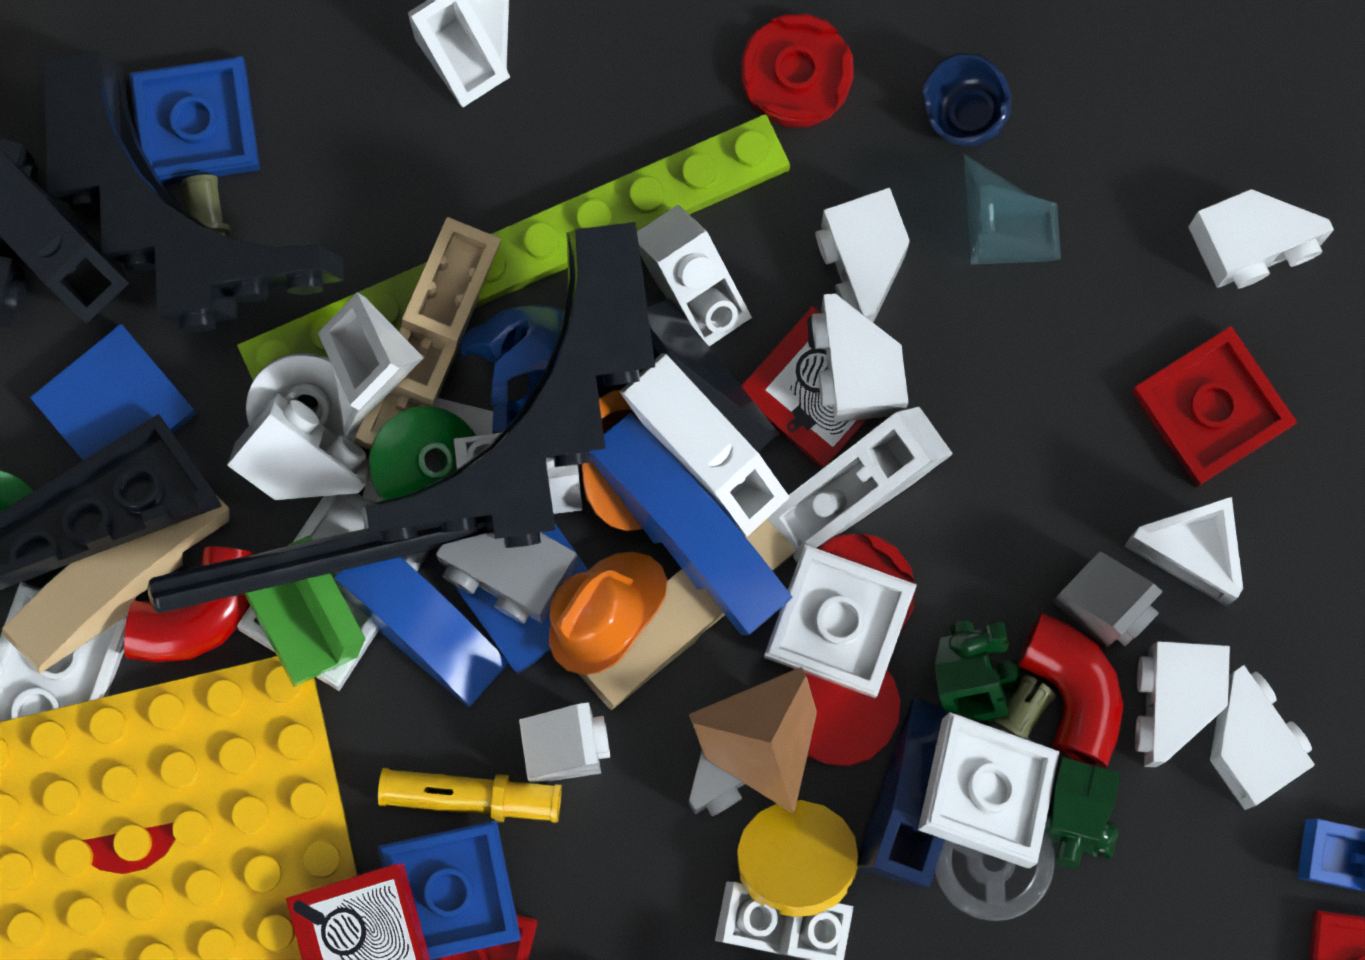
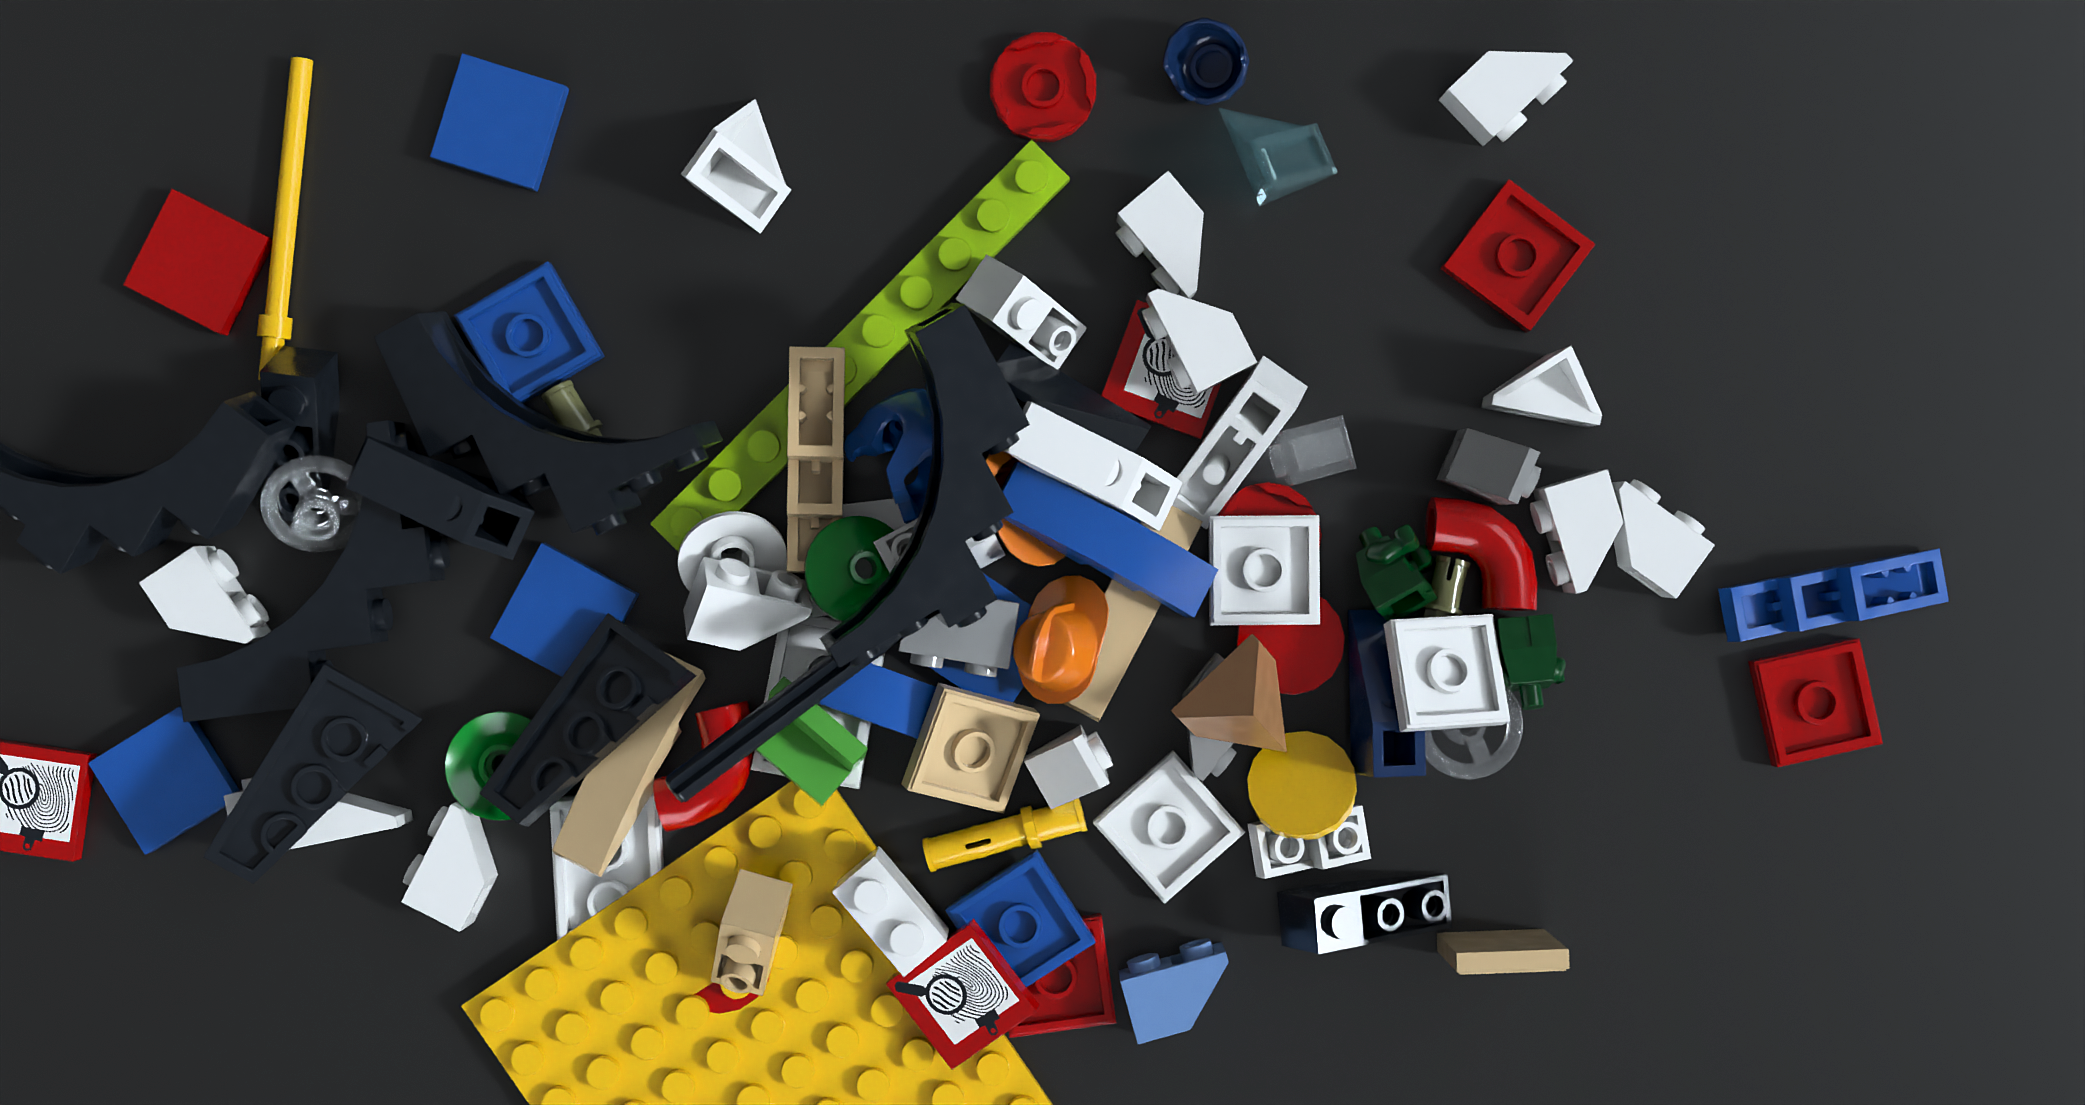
camera: 20 degrees left, 10 degrees up
(168, 789) = (750, 932): none -> tan slope
(321, 820) = (891, 911): none -> white brick
(365, 358) = (768, 501): white slope -> none
(469, 689) = (970, 748): none -> tan tile
(643, 853) = (1168, 826): none -> white tile
(933, 520) = (1312, 451): none -> clear brick

